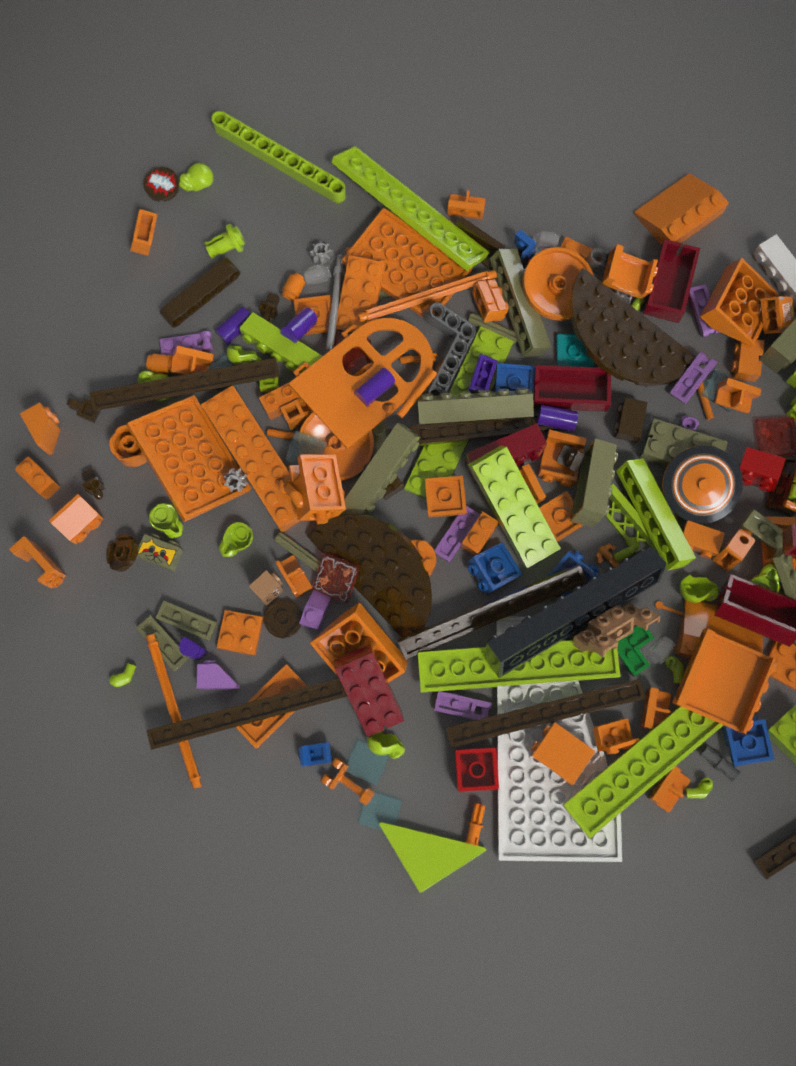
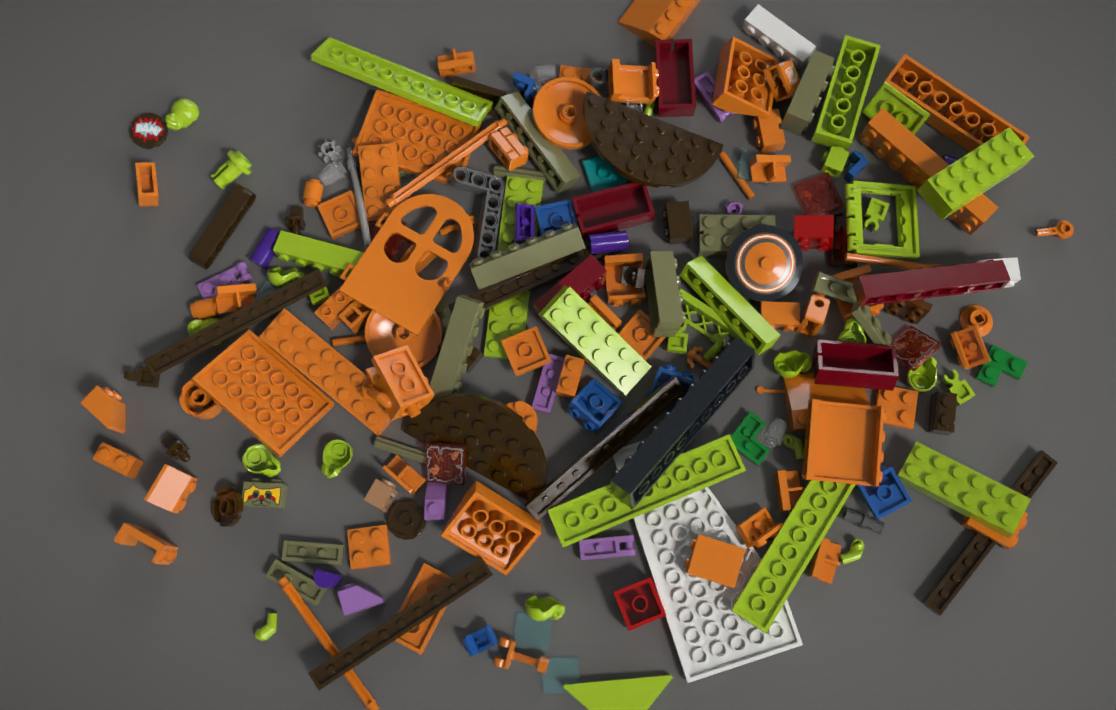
camera: 20 degrees left, 0 degrees up
(239, 483) = (319, 404): light grey gear -> none
(273, 150) = (250, 64): lime beam -> none
(299, 325) = (331, 229): dark purple brick -> none
(304, 445) = (374, 345): clear light blue piece -> none
(368, 690) = (512, 562): dark red piece -> none
(375, 386) = (424, 267): dark purple brick -> none
(416, 394) = (467, 260): orange bar -> none
(475, 824) = (654, 656): orange axle -> none
(545, 713) = (686, 528): dark brown plate -> none
(595, 534) = (678, 343): none -> lime plate
(612, 626) = (723, 425): medium nougat bracket -> none
(693, 378) = (723, 164): medium lavender plate -> none

